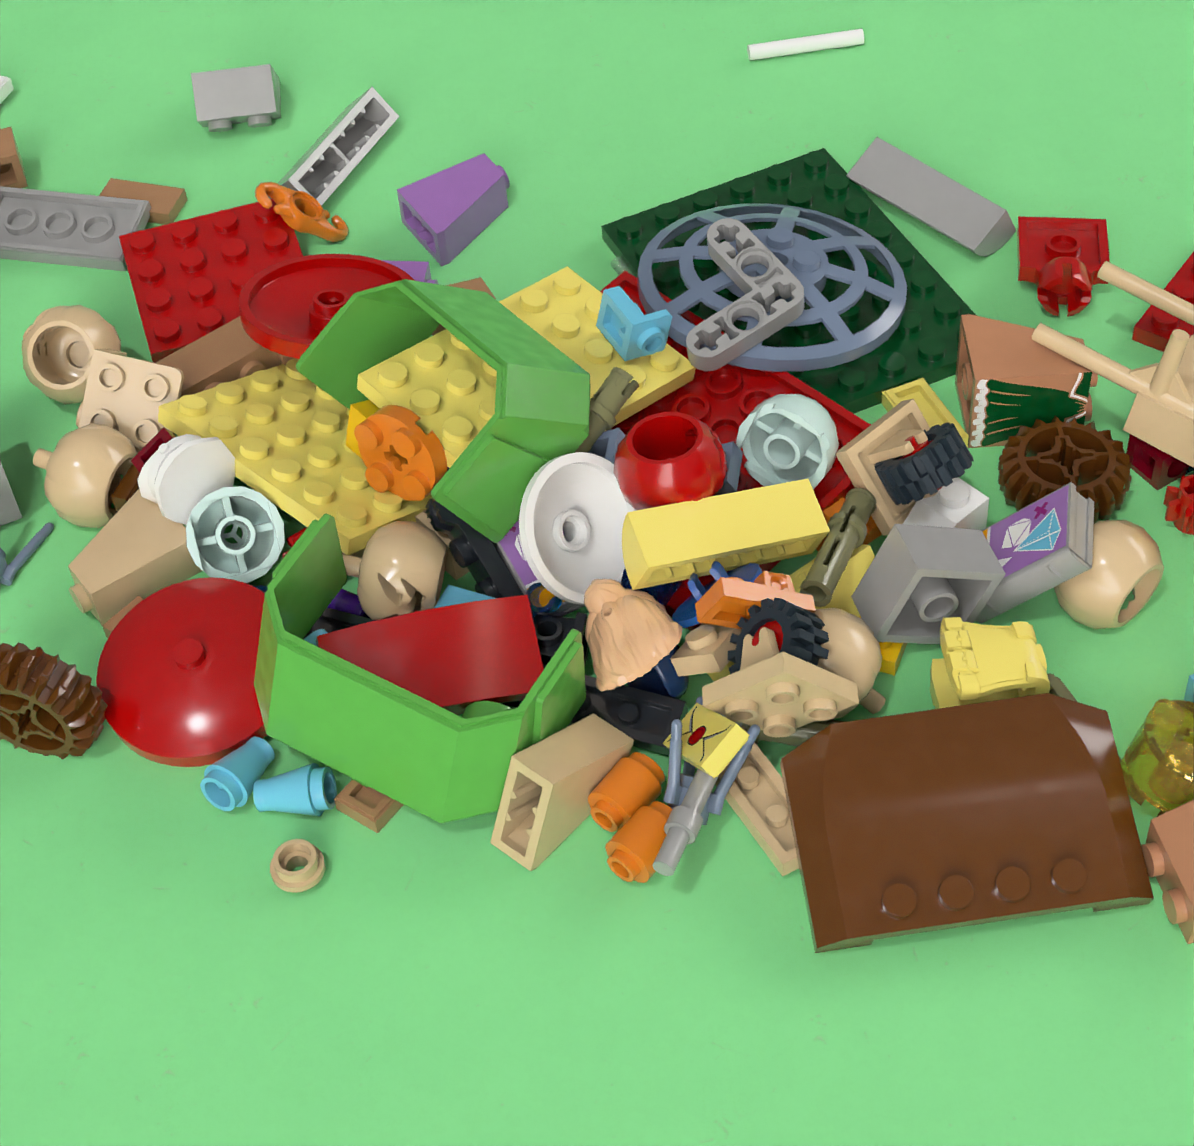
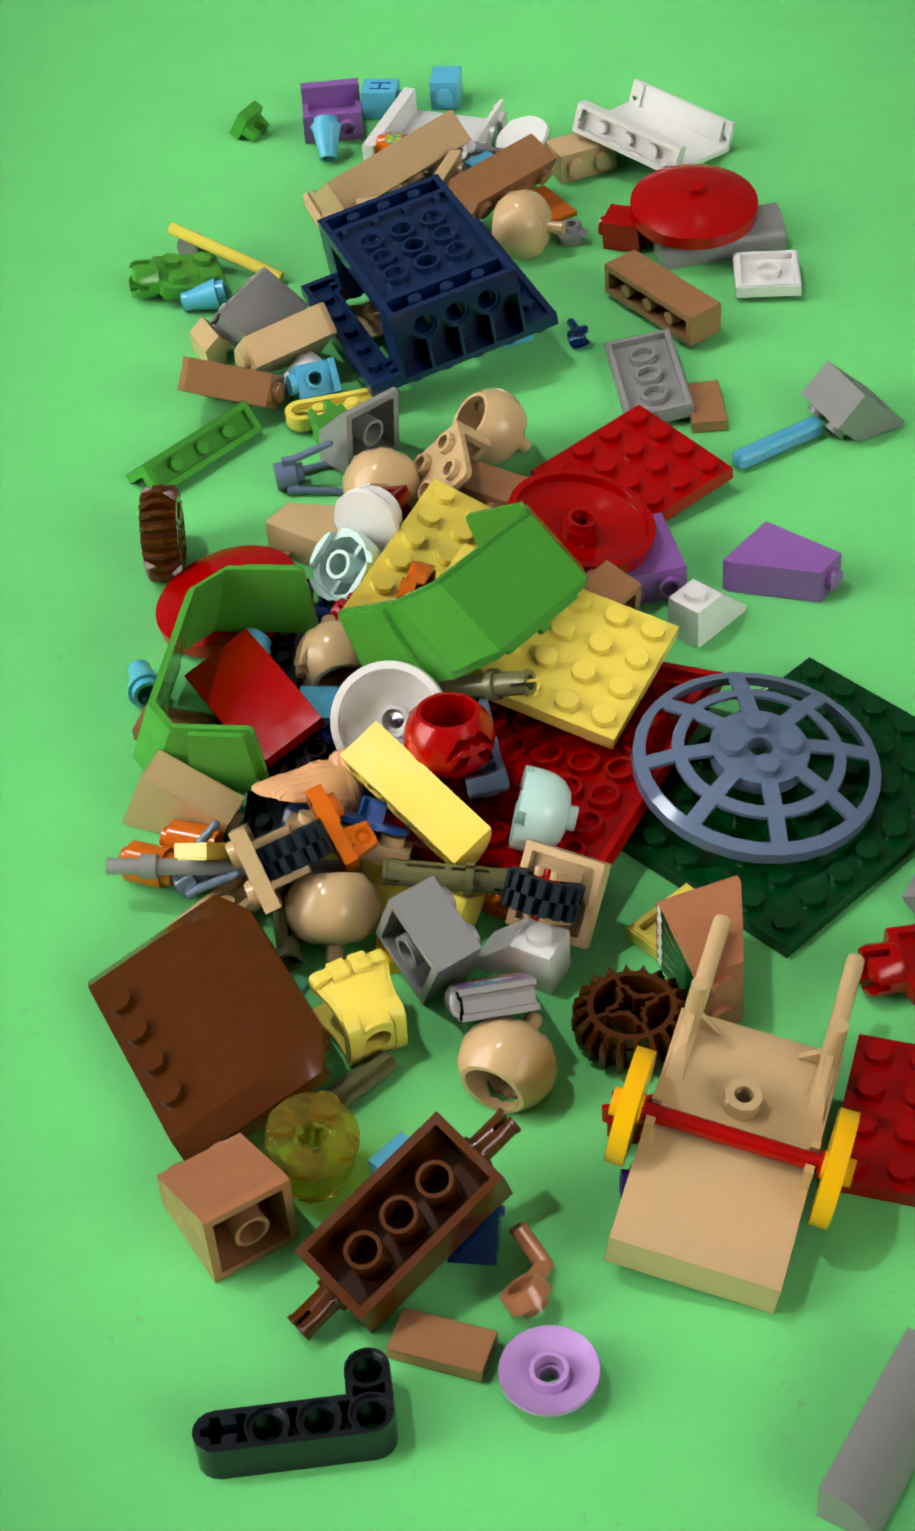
camera: 70 degrees right, 5 degrees down
(232, 778) = (145, 647): medium azure cone -> none
(246, 161) = (777, 443): none -> medium azure axle
(292, 855) = (86, 705): tan plate -> none
(311, 219) = (717, 467): orange piece -> none
(341, 147) = (812, 479): brick -> none
(493, 266) = (701, 612): none -> white slope
(628, 328) = (601, 672): medium azure bracket -> none
(758, 297) = (691, 741): light grey beam -> none

